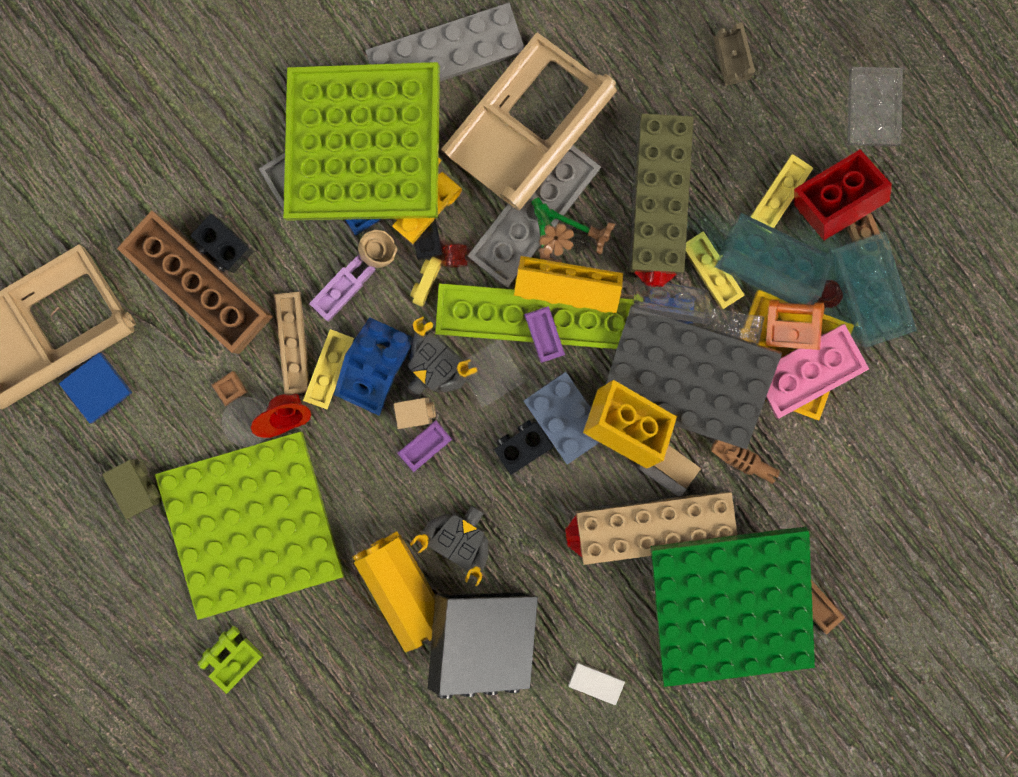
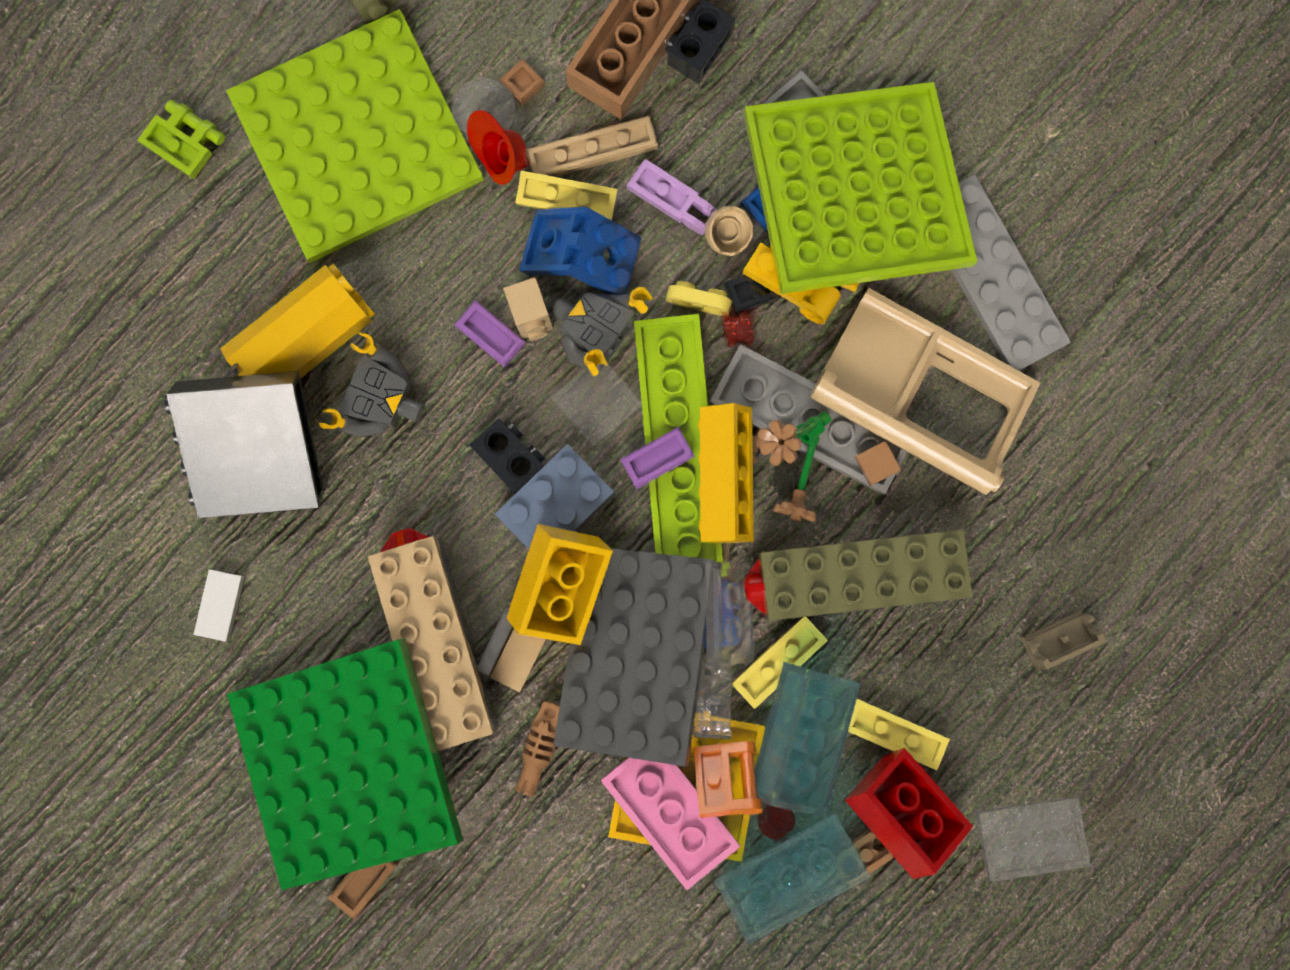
camera: 80 degrees right, 5 degrees down
(577, 168) = (877, 463): none -> medium nougat tile

